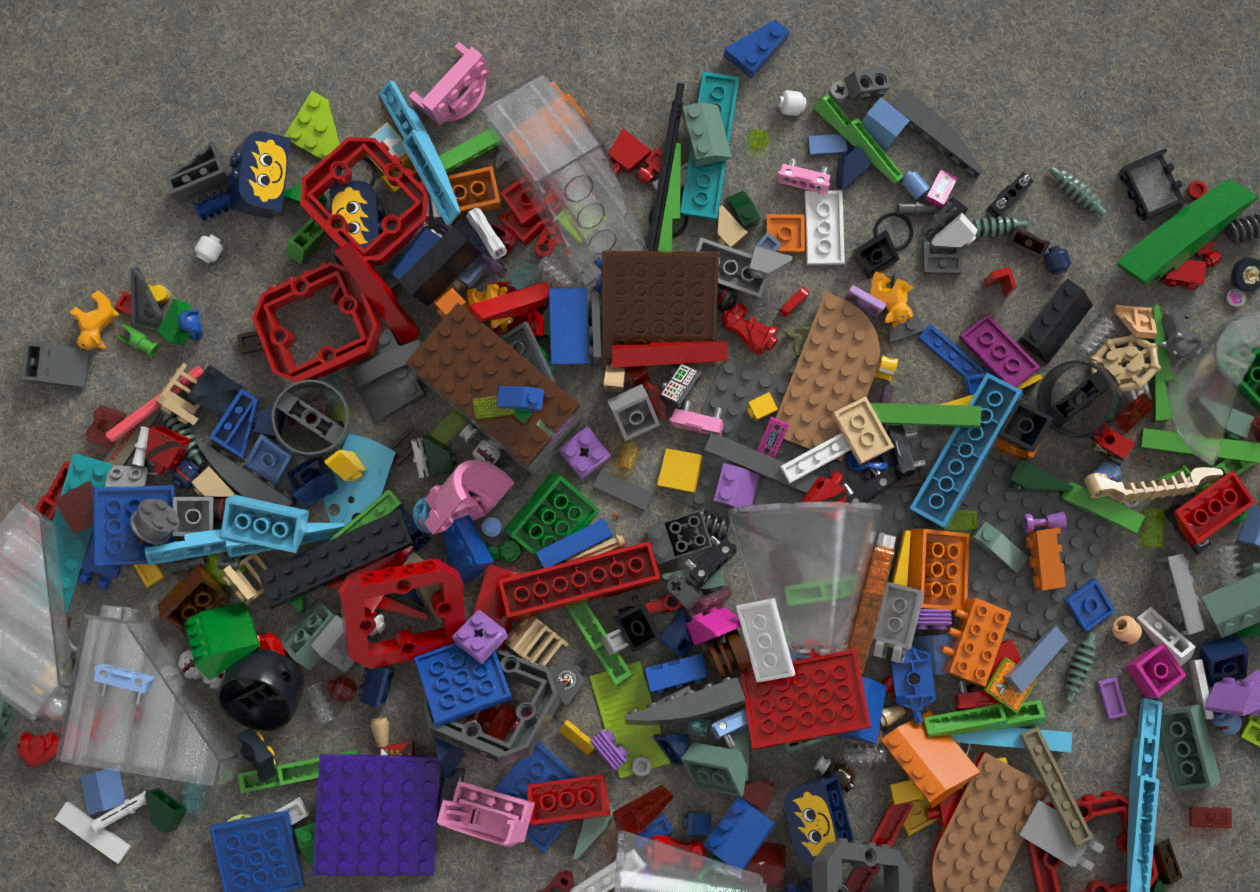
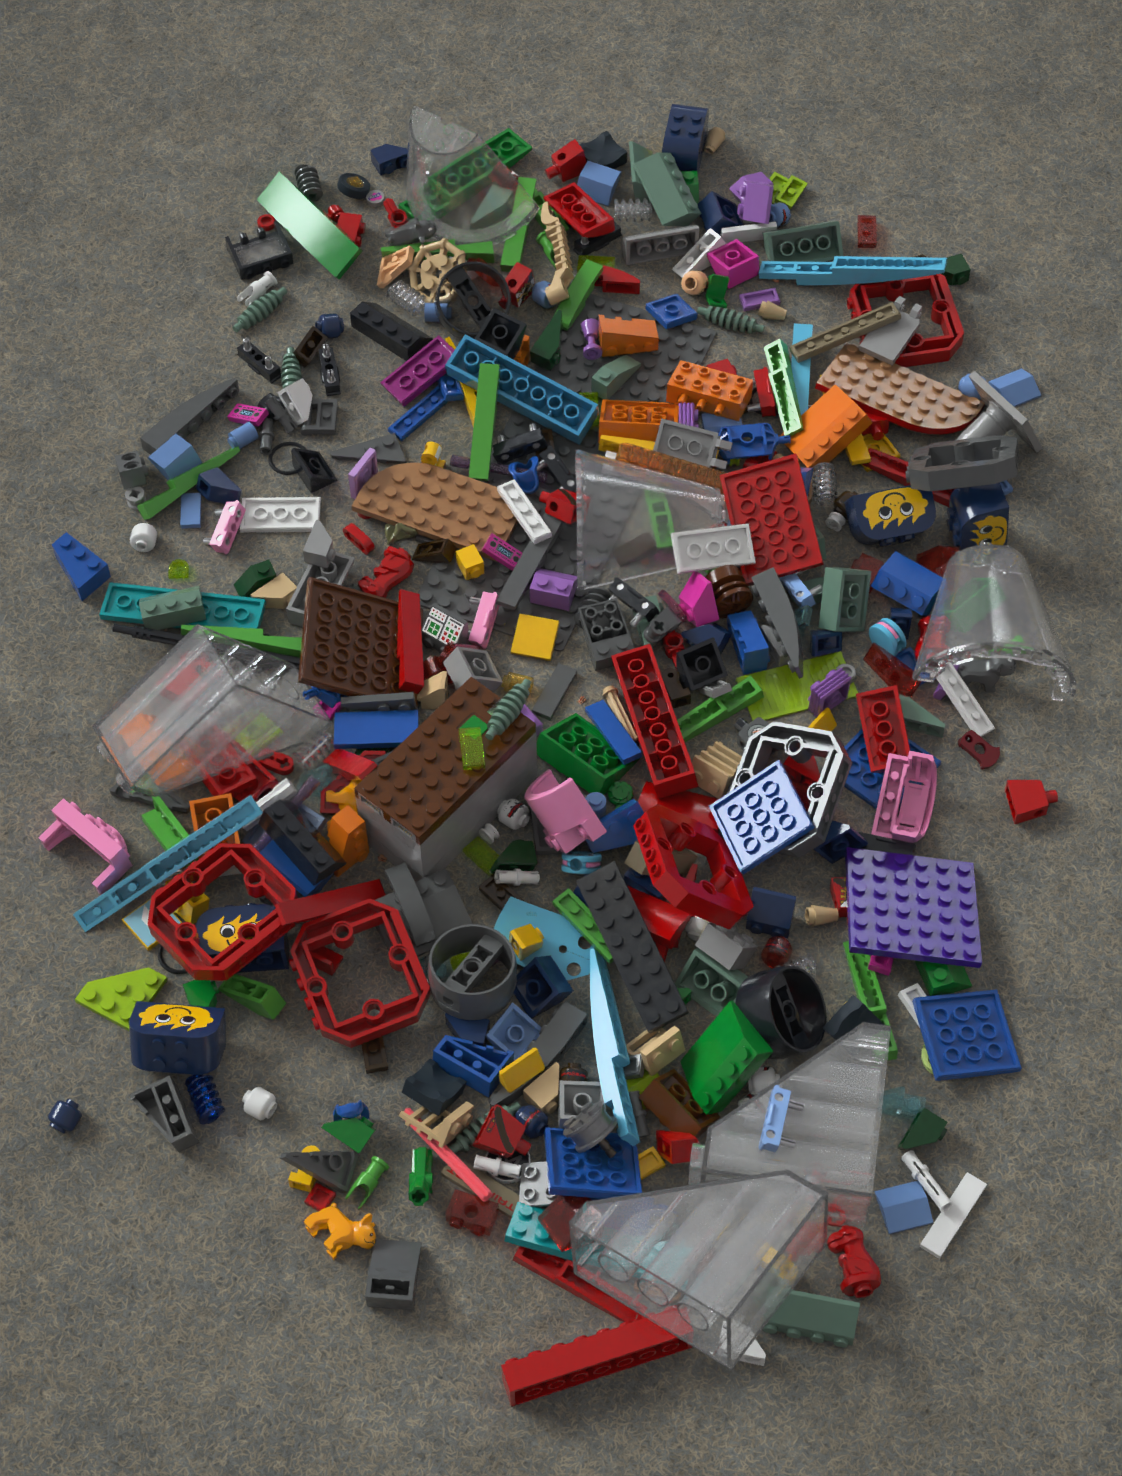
camera: 90 degrees left, 25 degrees down
(134, 383) = (421, 1177): none -> green piece
(151, 597) = (675, 1146): none -> red slope
(202, 93) = (64, 1115): none -> dark blue head
(222, 464) = (521, 1070): none -> yellow slope
(264, 523) = (592, 1018): medium azure slope -> none
(480, 647) = (716, 816): medium lavender brick -> none
(520, 398) = (465, 715): blue slope -> none
(533, 438) = (508, 709): none -> sand green piece
(677, 809) = (888, 636): none -> medium azure head
(769, 242) = (295, 554): sand blue plate -> none
(778, 373) = (435, 551): none -> dark brown slope
(788, 230) = (284, 546): orange plate -> none
(862, 430) = (498, 472): tan tile -> none
(894, 298) = (377, 441): light orange animal -> none
(982, 266) = (329, 371): none -> black piece
(1002, 691) = (750, 364): tile -> none
(1004, 277) = (349, 362): red panel -> none
(1036, 660) = (719, 343): sand blue slope -> none
(1080, 372) = (430, 313): none -> medium blue brick
(1094, 710) = (771, 311): none -> tan cone
(1104, 187) = (257, 288): none -> white piece
(1117, 652) = (716, 290): none -> green bracket
(1128, 547) = (617, 281): none -> red slope
(1208, 317) = (395, 214): none -> red axle

